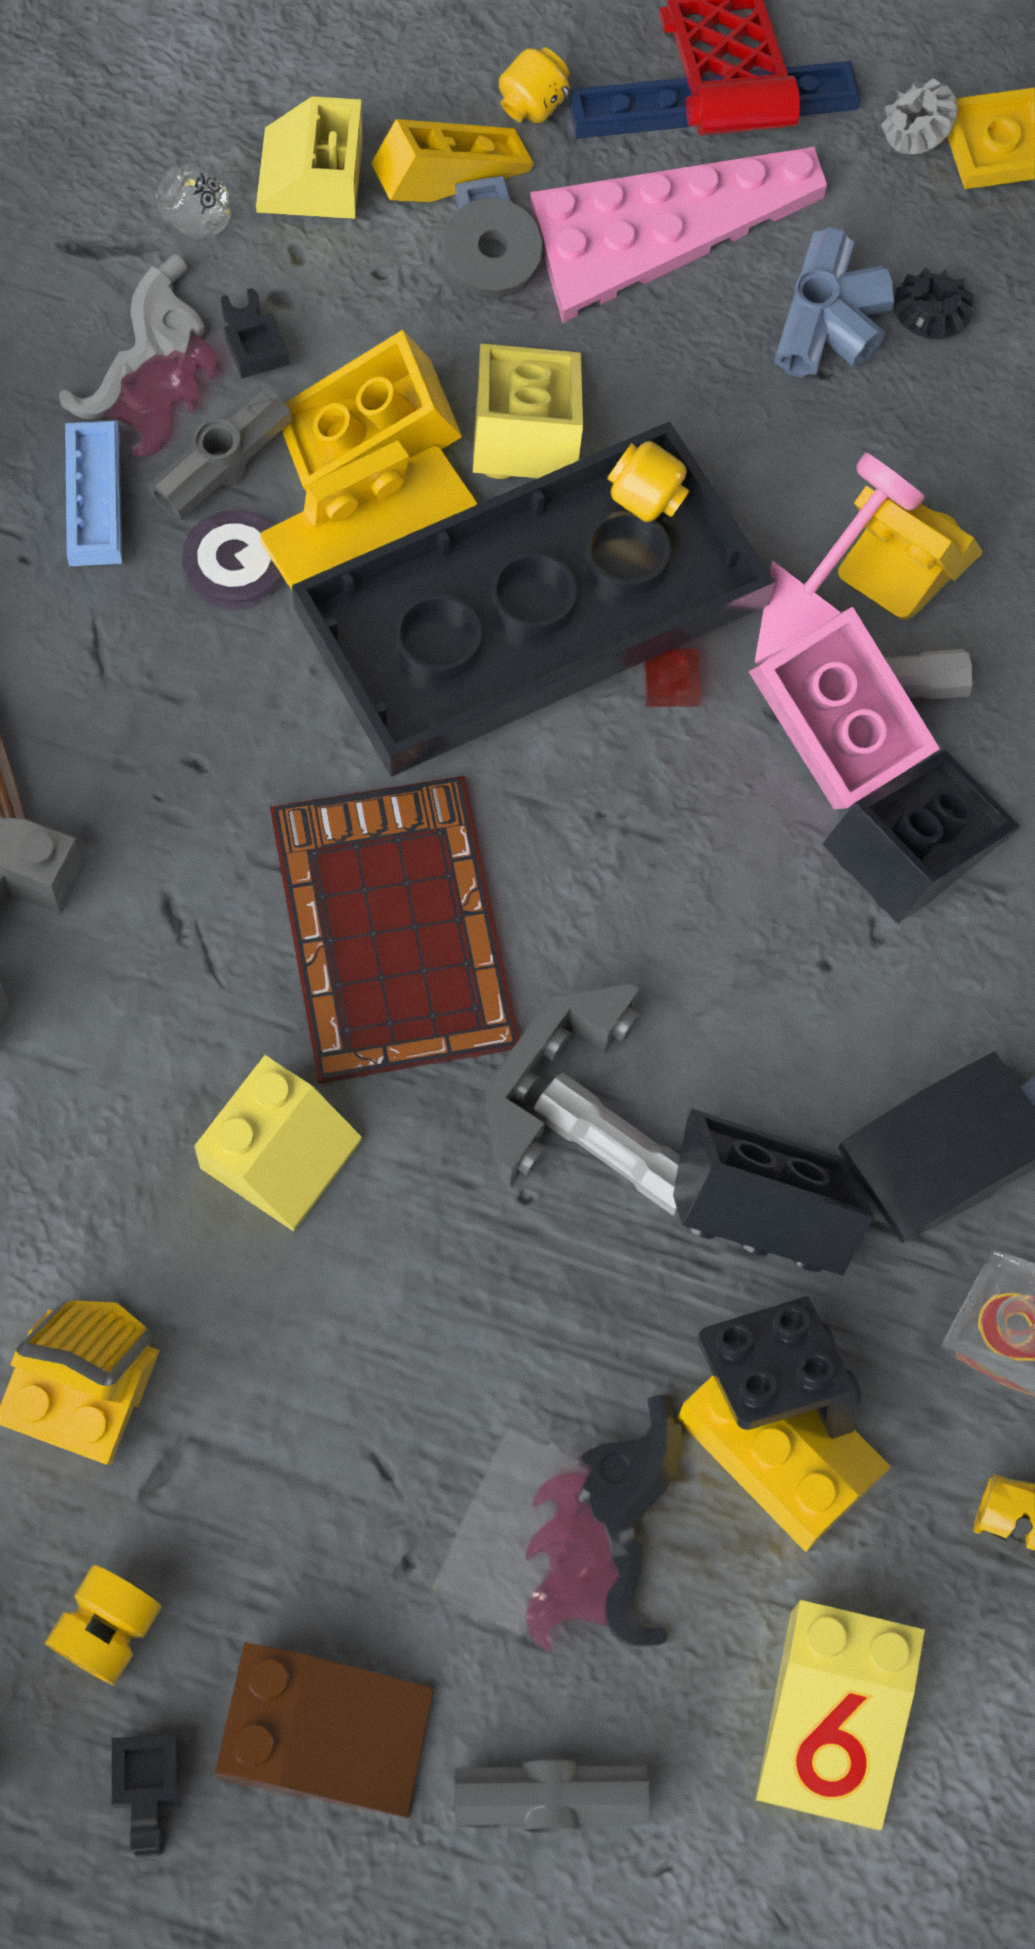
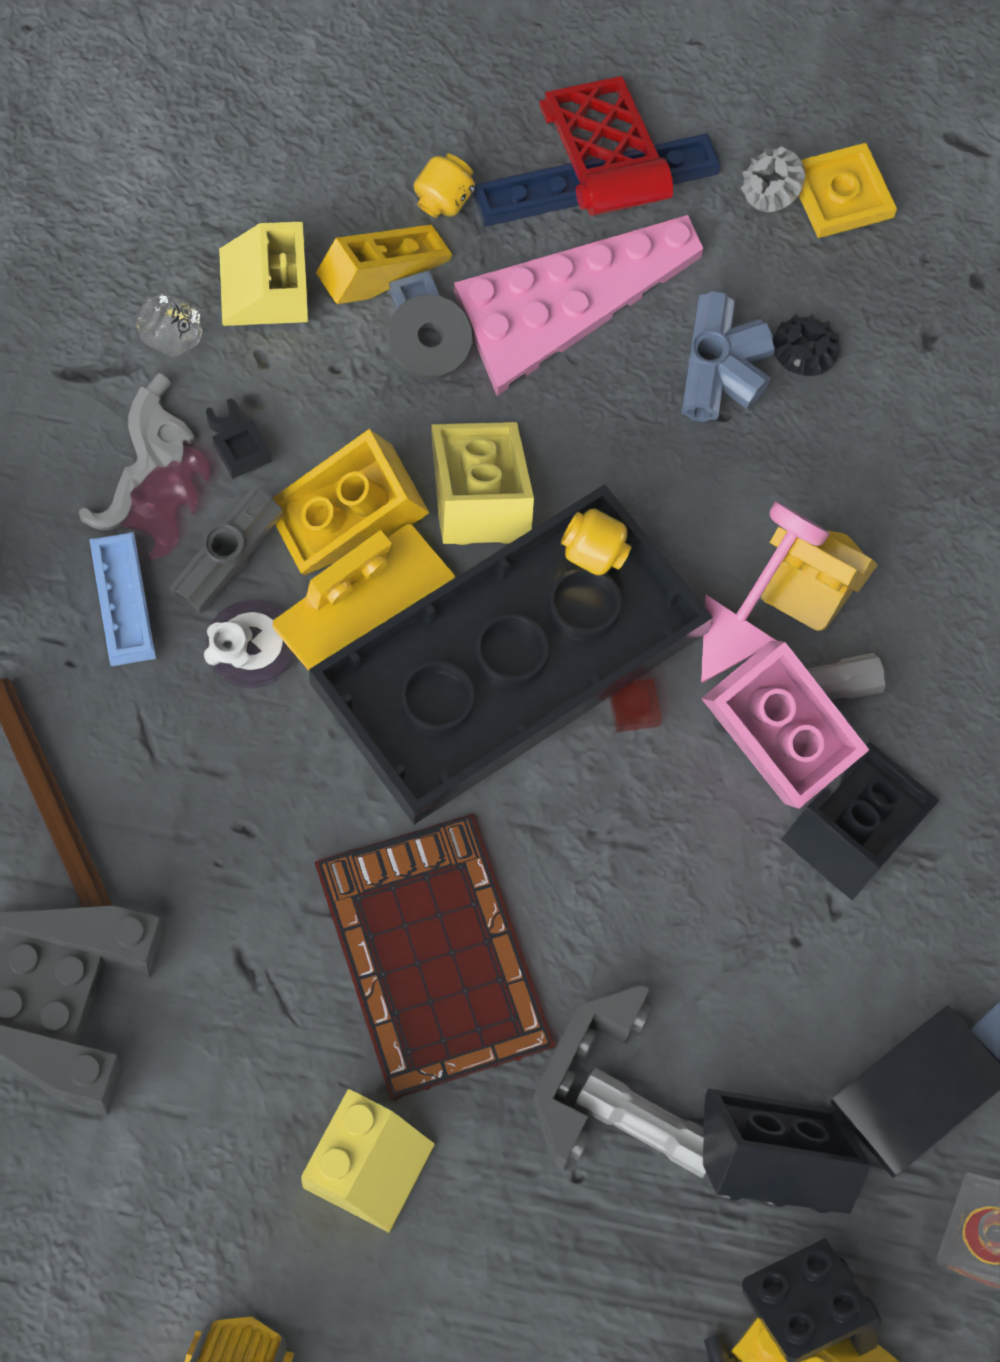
camera: 10 degrees left, 0 degrees up
(203, 540) = (228, 632): none -> white plate

